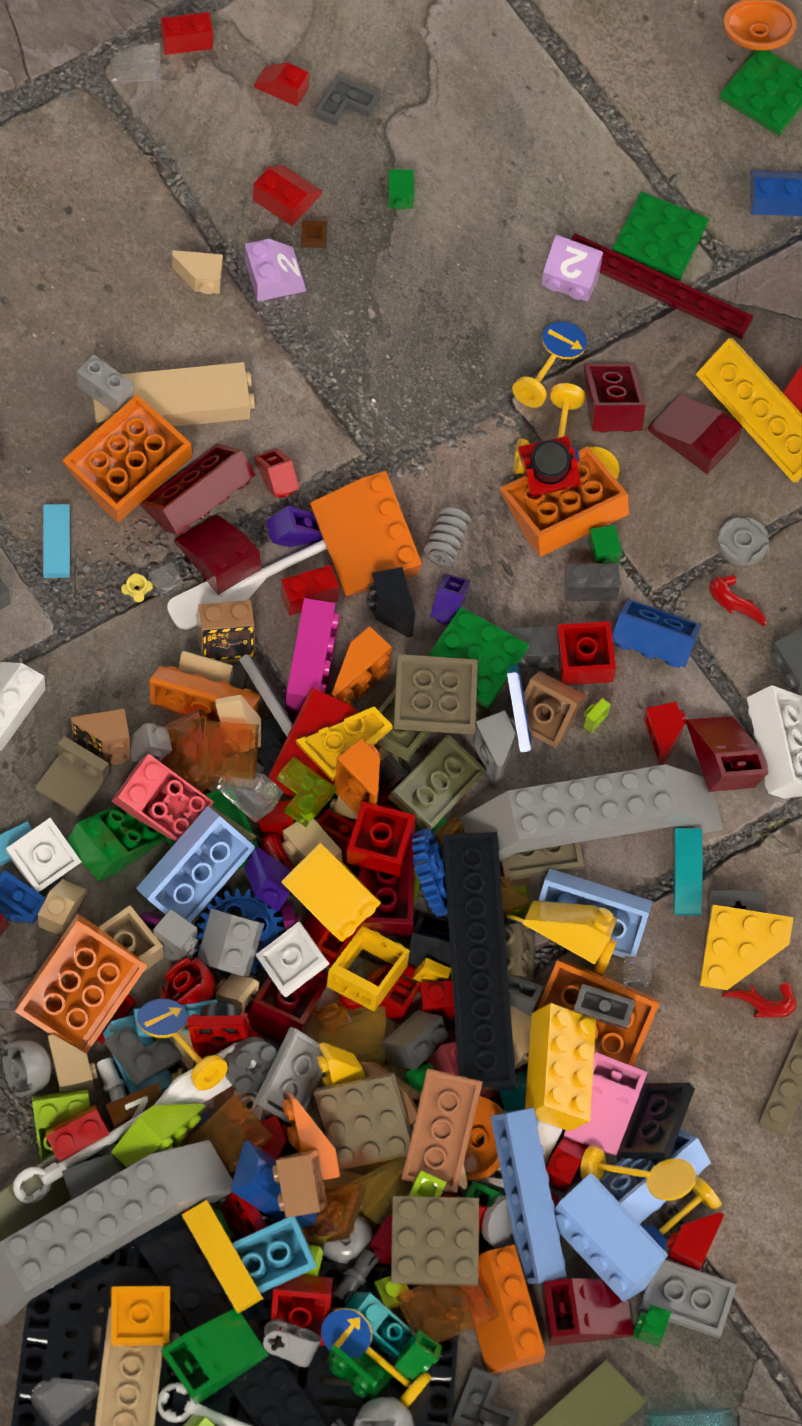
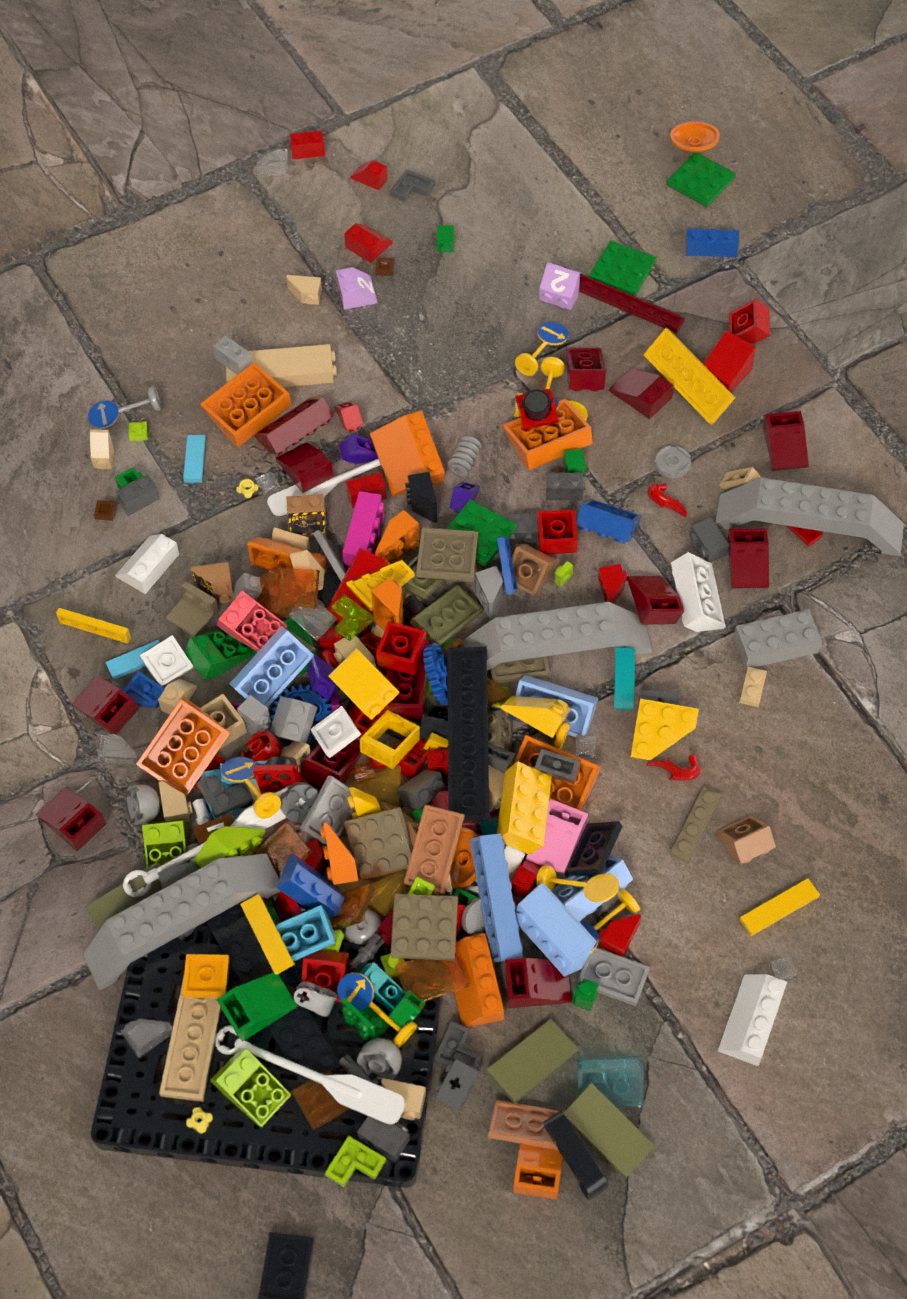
camera: 10 degrees right, 5 degrees down
(77, 1132) = (171, 847): red brick -> none
(300, 1183) = (326, 882): medium nougat slope -> none

